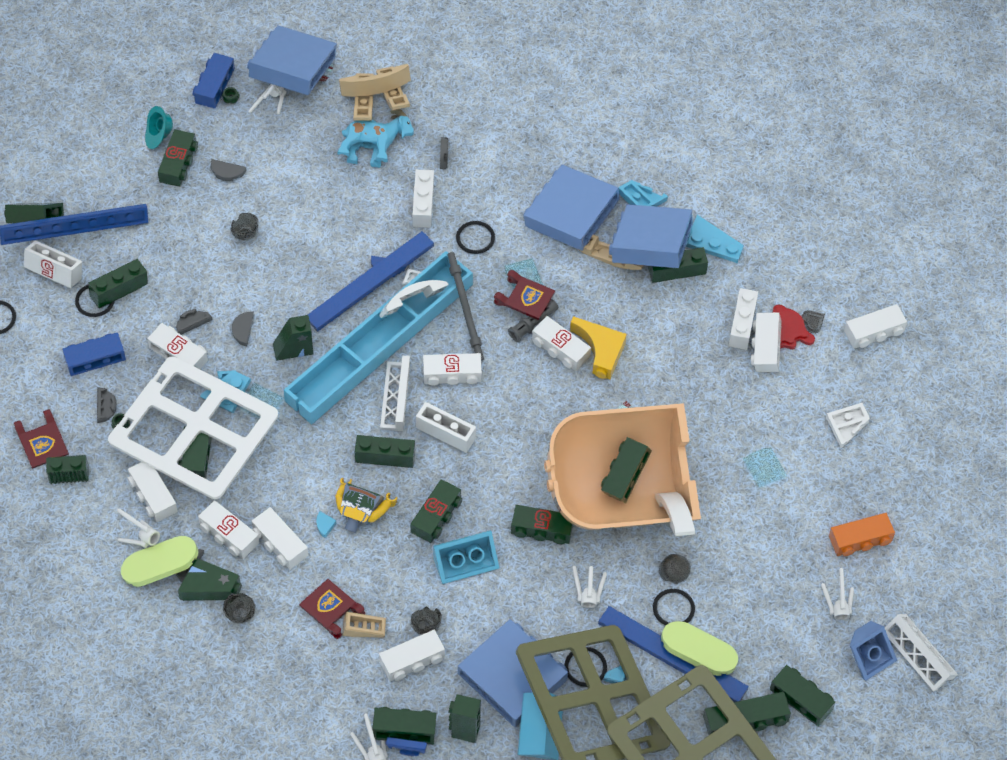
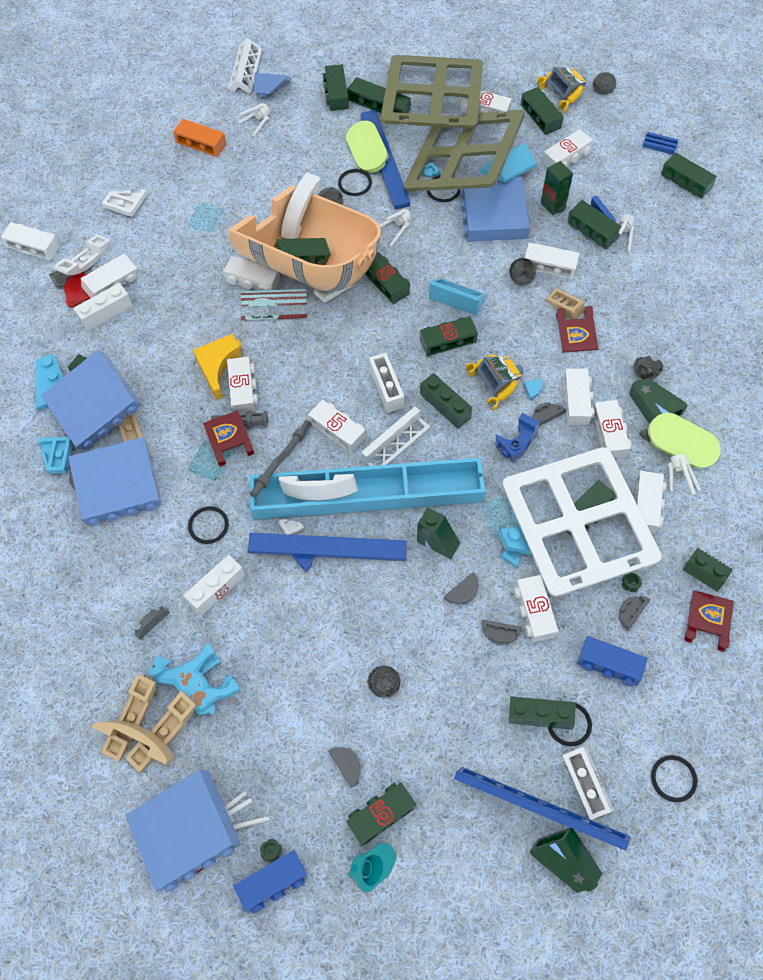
camera: 135 degrees left, 5 degrees up
(294, 454) = (528, 431): none -> blue tile
(296, 510) = (547, 412): none -> dark grey tile
(812, 344) = (84, 260): none -> white slope

